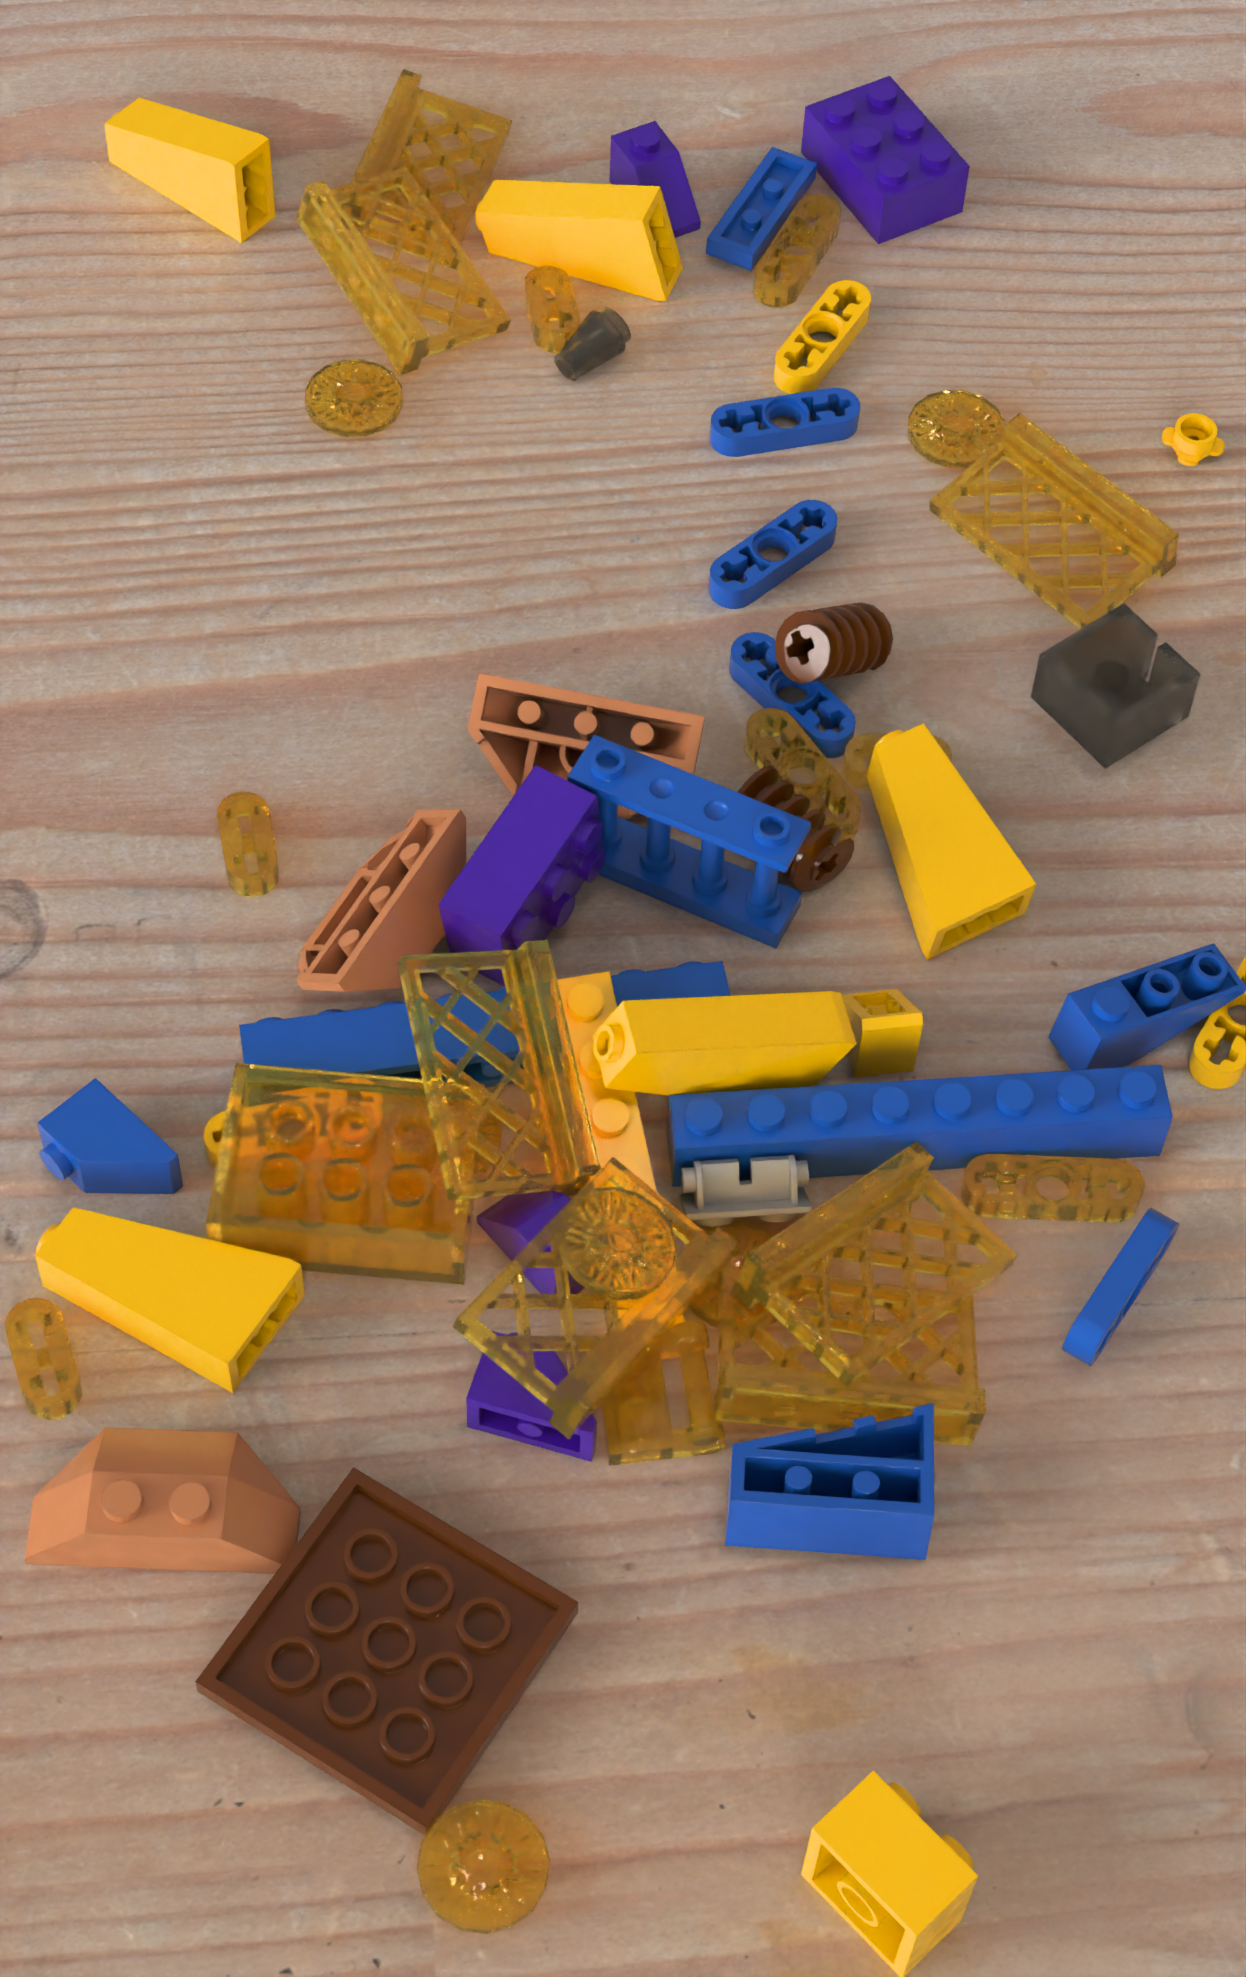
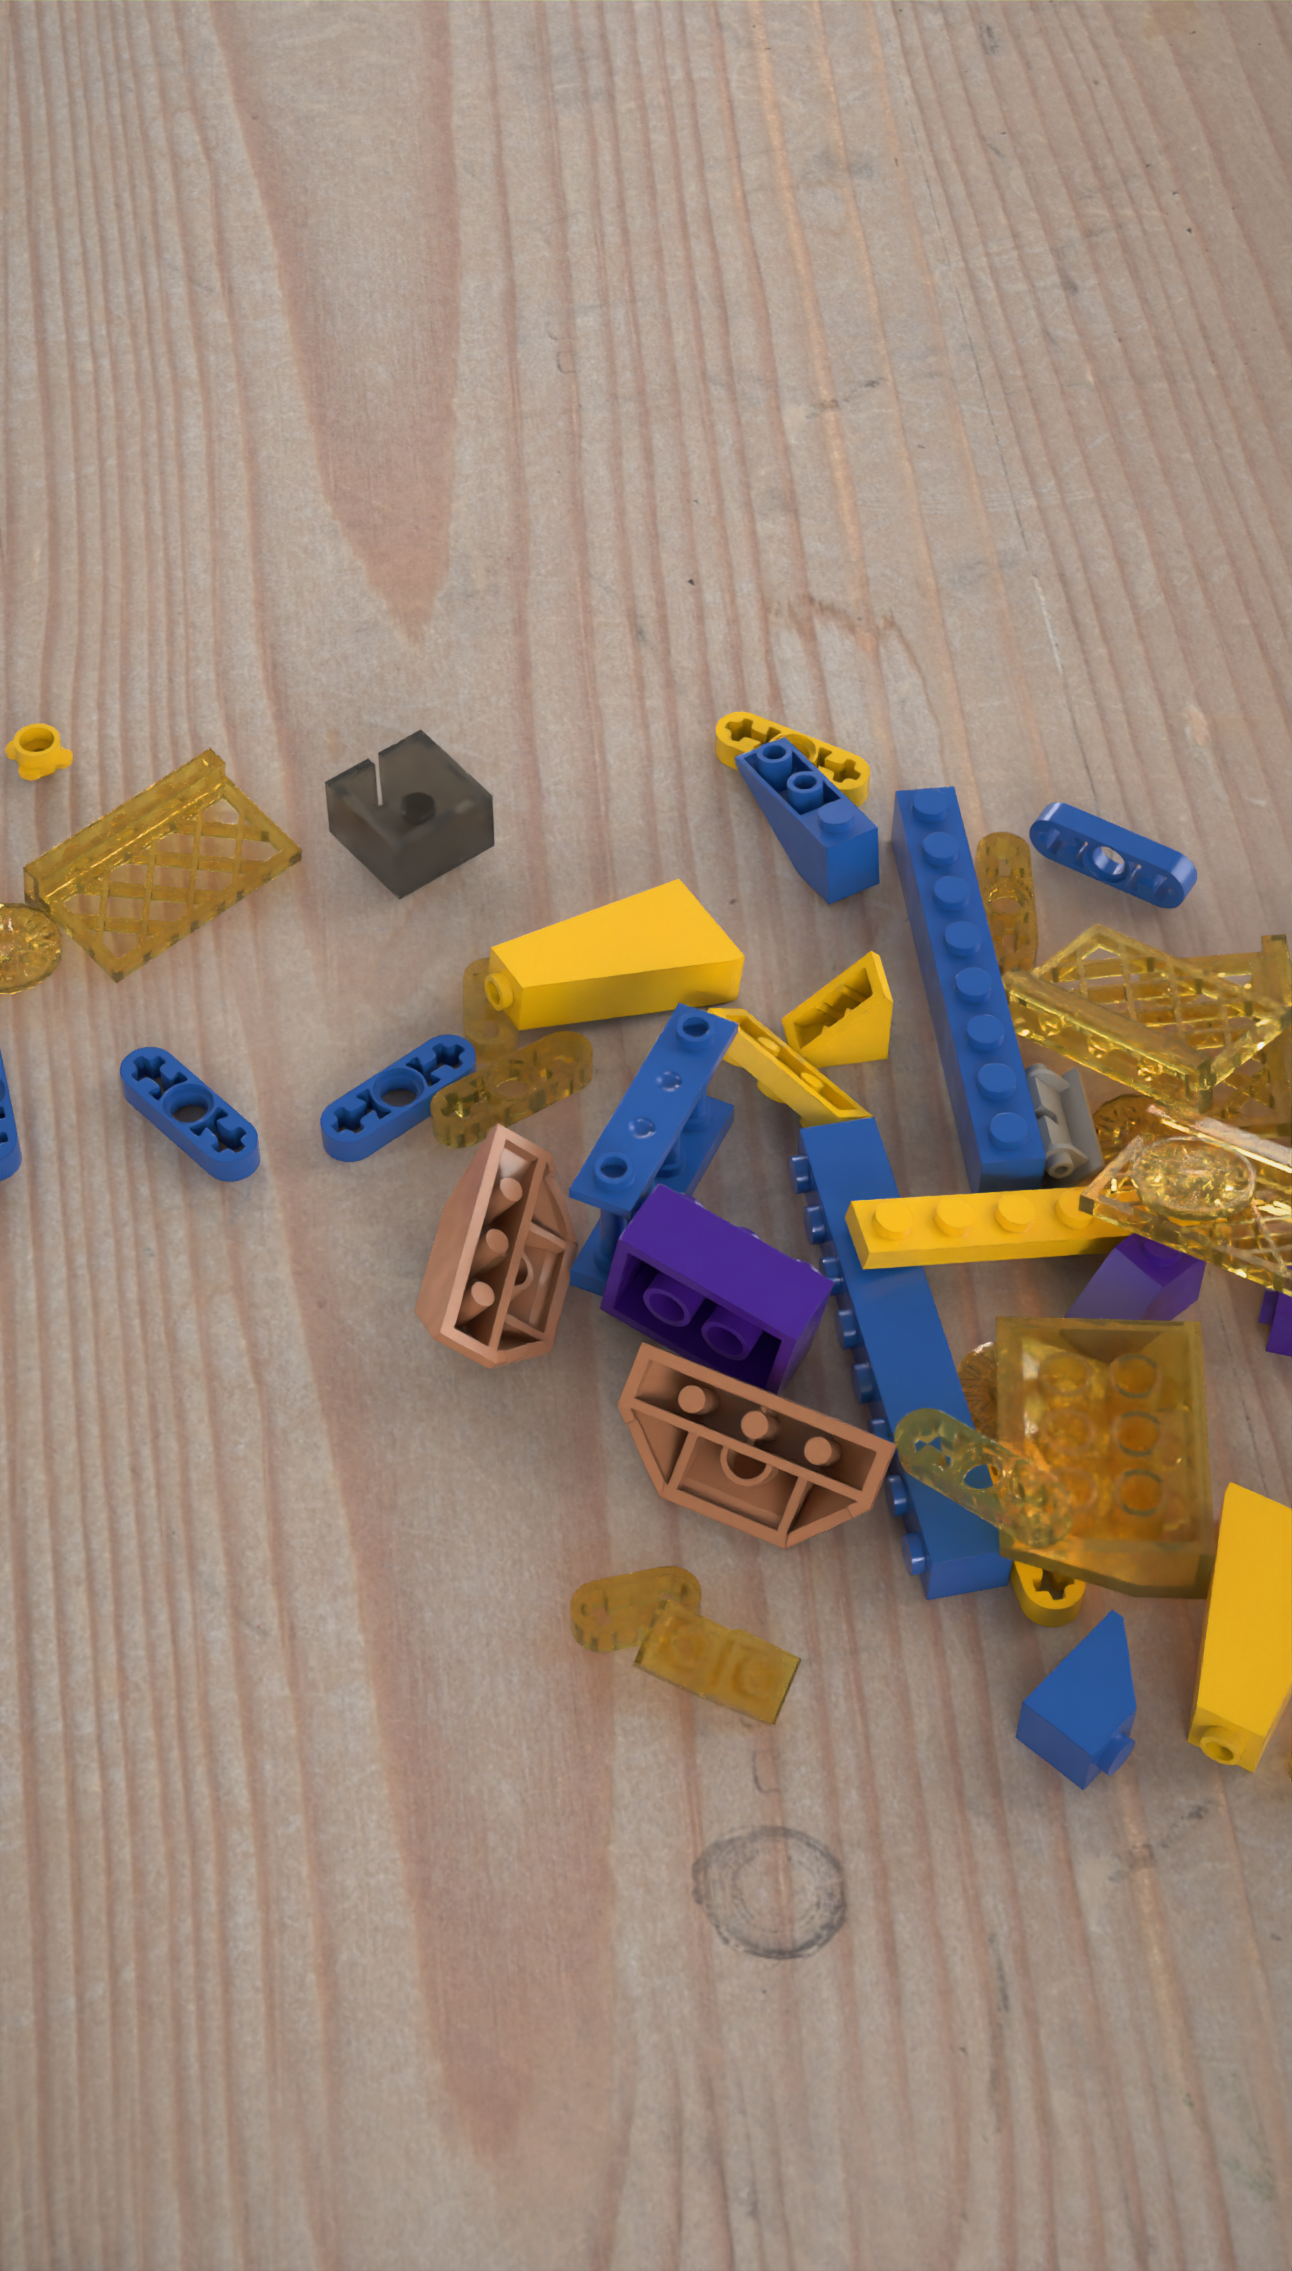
camera: 90 degrees left, 5 degrees down
(191, 880) = (717, 1662): none -> clear yellow slope
(293, 1071) = (996, 1503): none -> clear yellow beam
(548, 1072) = (1008, 1256): clear yellow fence -> none
(723, 1042) = (931, 1103): yellow slope -> none
(819, 856) = (592, 1087): reddish brown piece -> none
(831, 958) = (785, 1074): none -> yellow plate
(833, 642) = (358, 1037): reddish brown piece -> none

